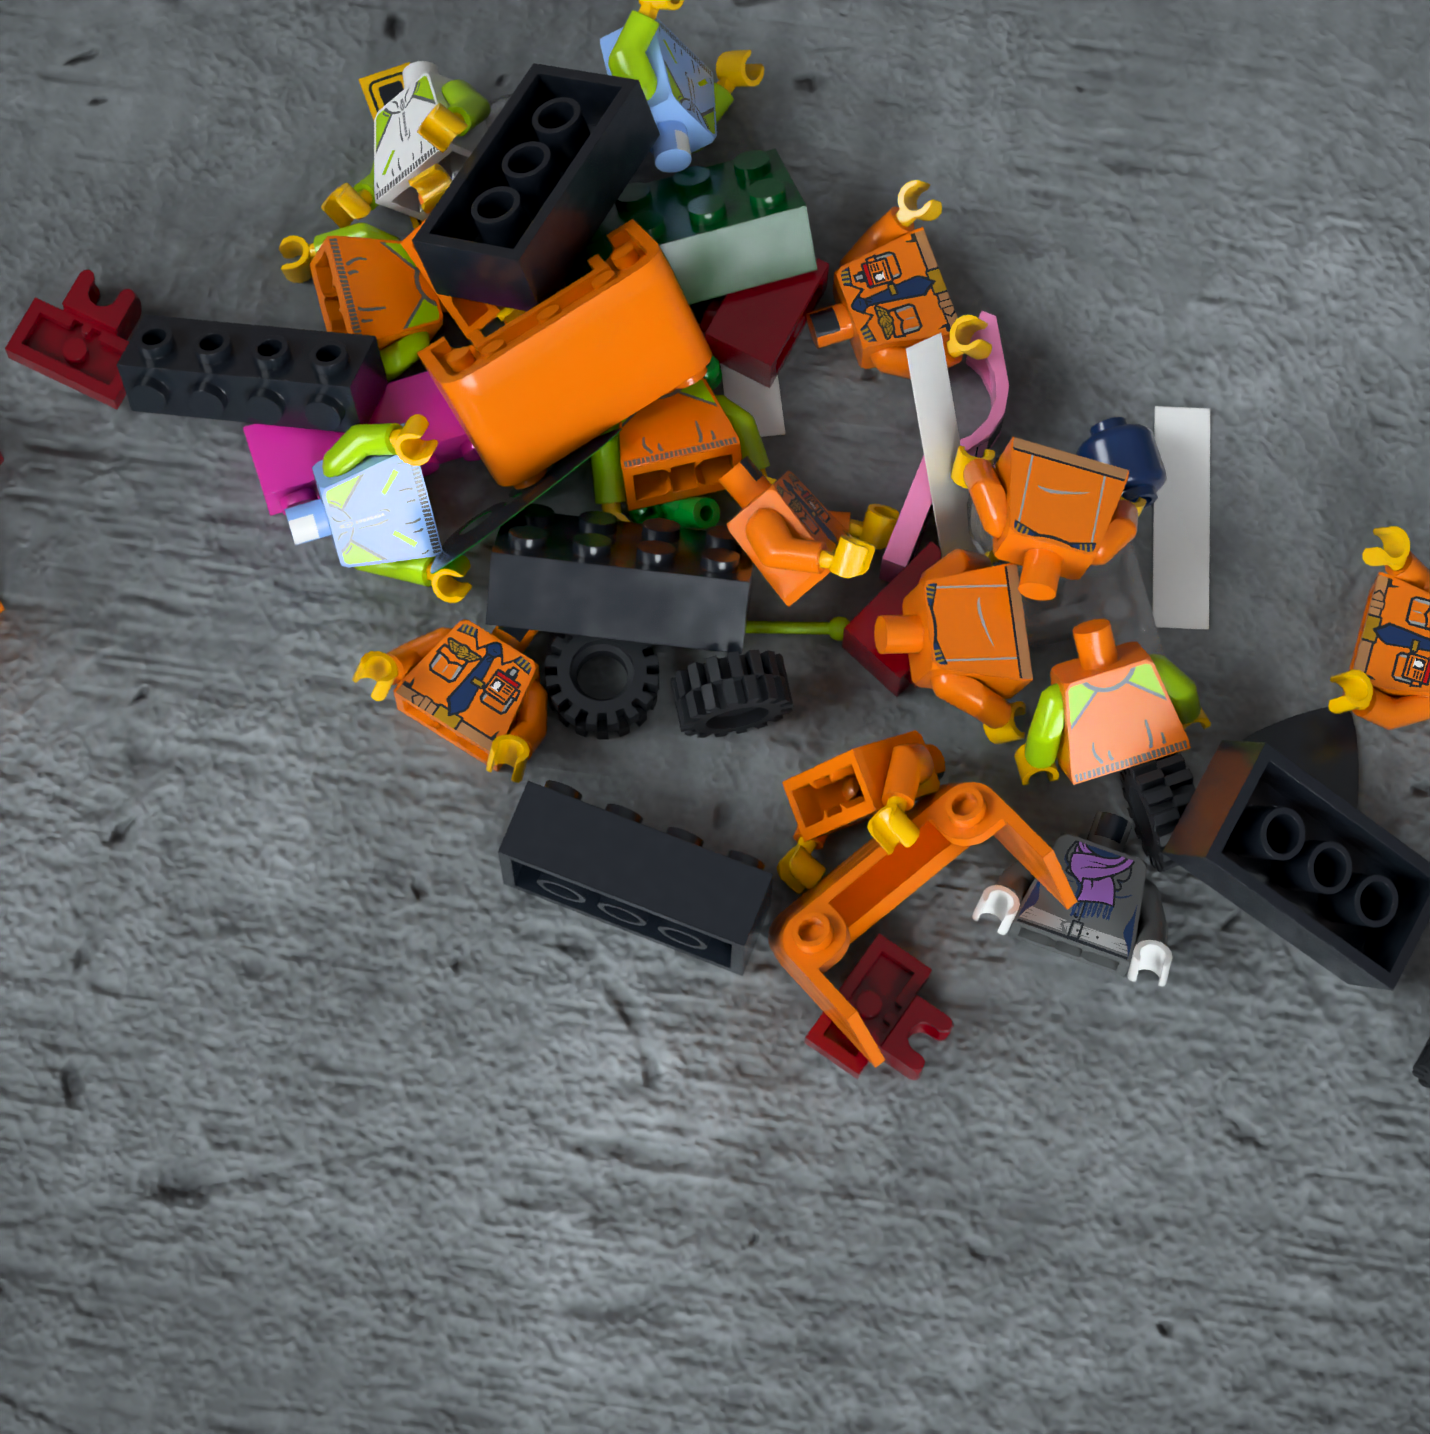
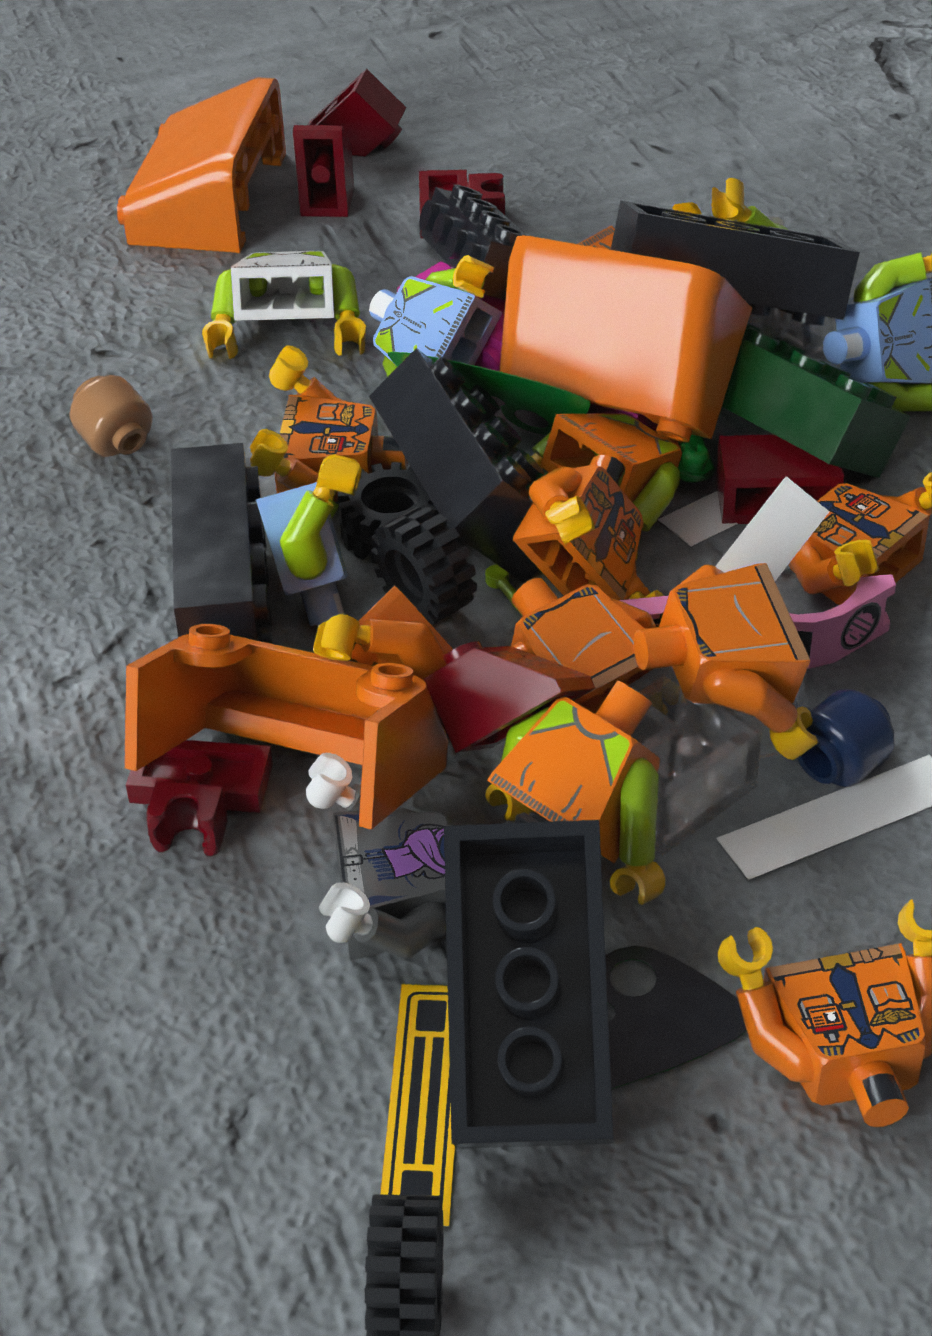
camera: 65 degrees right, 30 degrees down
(174, 602) = (284, 288): none -> torso
(285, 875) = (109, 414): none -> medium nougat head
(647, 777) = (305, 537): none -> torso
(1002, 721) = (494, 688): none -> dark red slope
(1292, 987) = (419, 1115): none -> sticker

